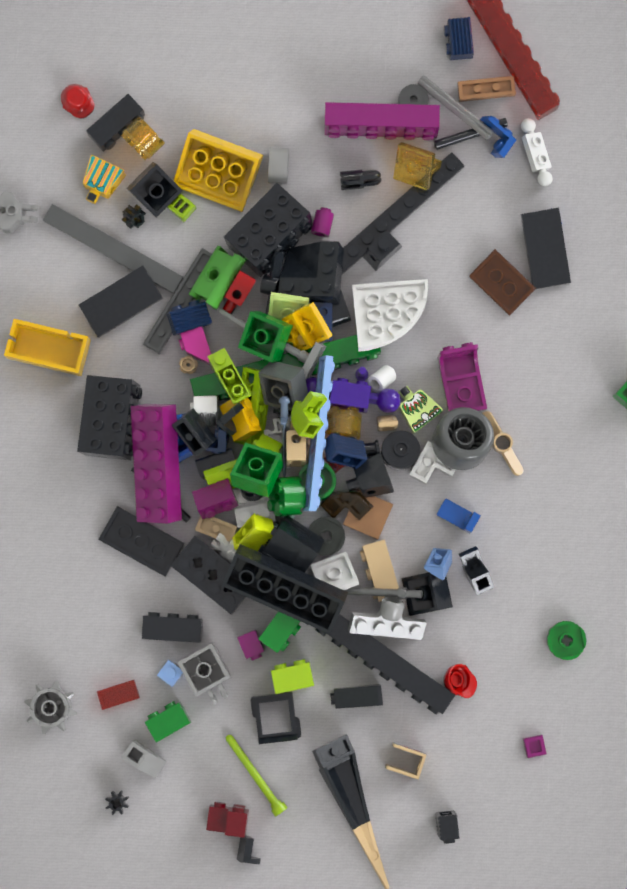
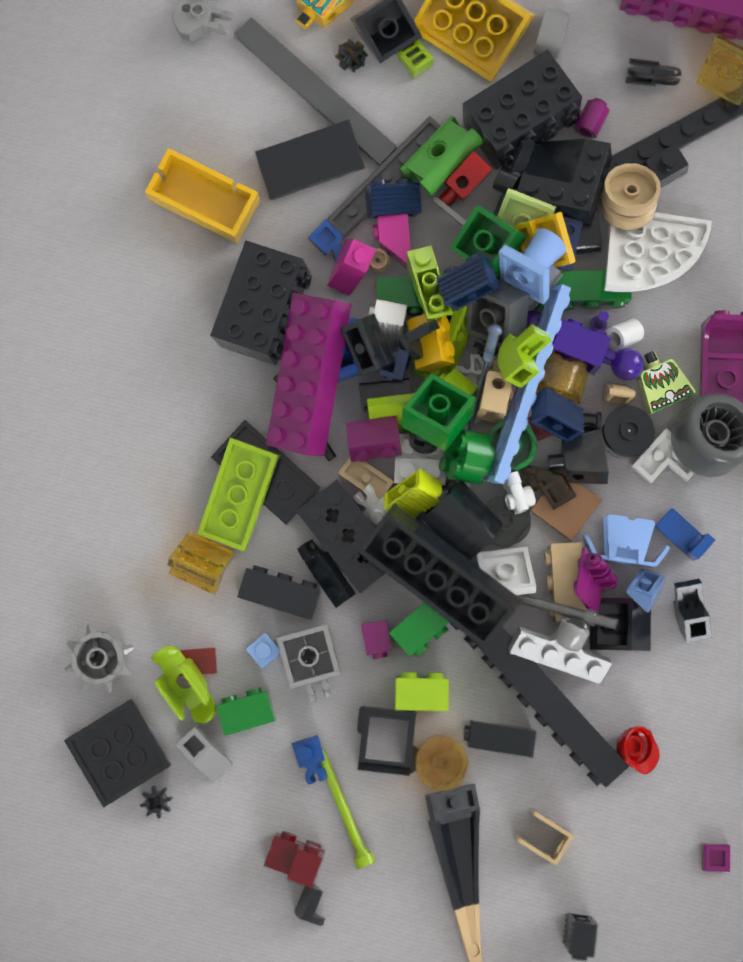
camera: 15 degrees right, 0 degrees up
(80, 773) = (117, 753): none -> black plate
(108, 619) = (200, 562): none -> clear yellow bracket
(124, 563) = (238, 494): none -> lime plate
(128, 718) = (195, 697): none -> lime piece
(147, 357) = (327, 239): none -> blue plate
(169, 374) = (350, 266): none -> dark pink slope
(203, 605) = (326, 573): none -> black hinge
(221, 742) = (309, 755): none -> blue plate
(256, 370) = (467, 282): none -> dark blue brick
(299, 350) = (531, 269): none -> light blue plant
(329, 725) = (434, 776): none -> clear yellow brick
(330, 517) = (518, 497): none -> white plate
(362, 276) = (630, 196): none -> tan wheel
(397, 565) = (592, 578): none -> magenta hinge
(417, 531) = (626, 541): none -> light blue piece

